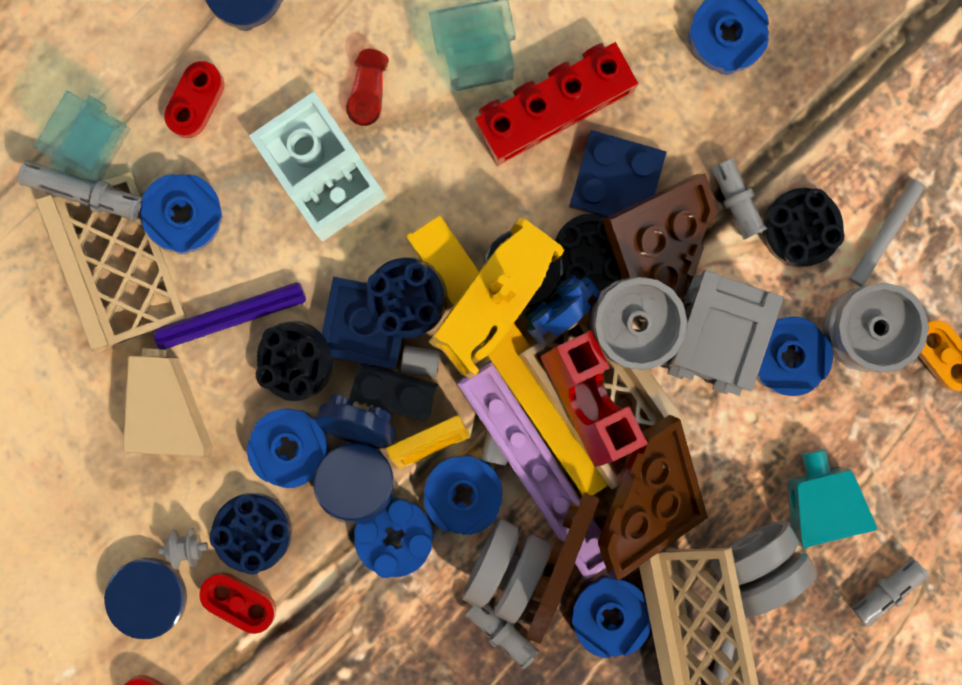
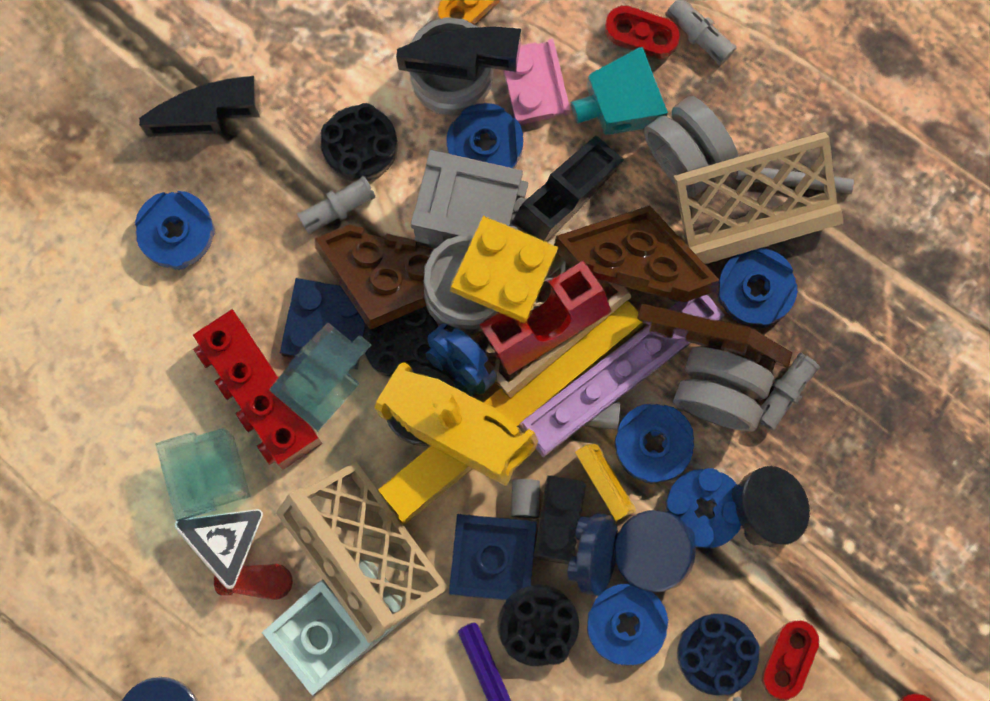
camera: 90 degrees left, 10 degrees down
(372, 165) = (340, 562): none -> tan fence
(386, 603) = (771, 507): none -> black tile
(406, 59) = (222, 541): none -> black piece
(406, 297) = (463, 515): dark blue tile -> none
(559, 167) = (319, 377): none -> clear light blue plate
(645, 360) = (504, 269): none -> yellow plate
(732, 436) = (568, 189): none -> black slope
(851, 413) = (538, 85): none -> bright pink plate
(854, 70) = (204, 108): none -> black slope
(887, 232) = (357, 65): light grey bar -> none
(888, 340) = (462, 52): none -> black slope
(897, 532) = (643, 29): none -> red plate

